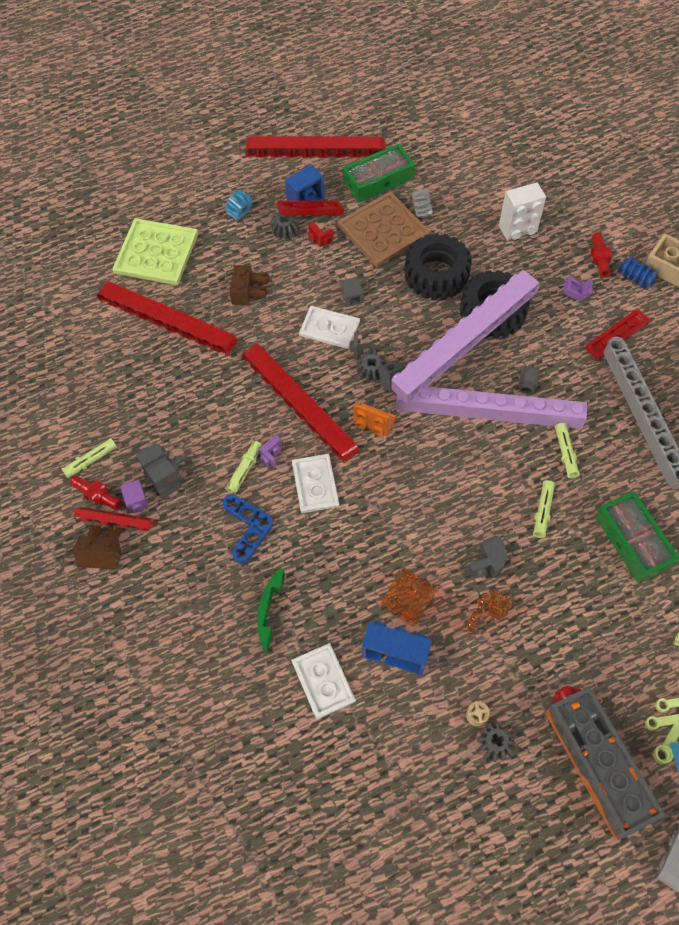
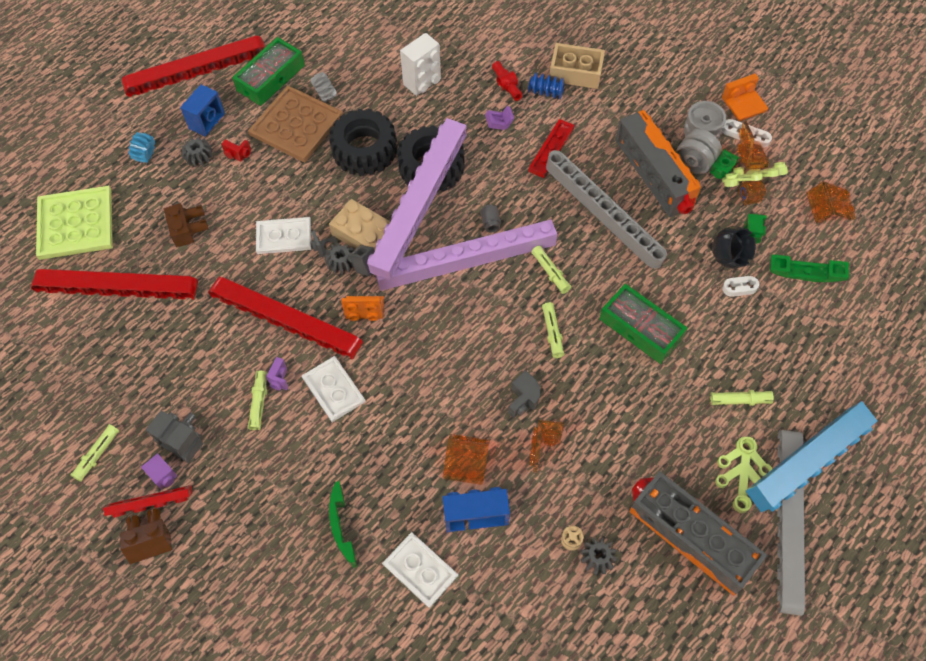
camera: 25 degrees left, 0 degrees up
(96, 492) = (117, 483): red pin -> none
(254, 527) = (293, 455): blue beam -> none
(309, 207) = (215, 126): red plate -> none
(352, 292) = (291, 194): dark grey brick -> none
(399, 342) = (358, 225): none -> tan brick

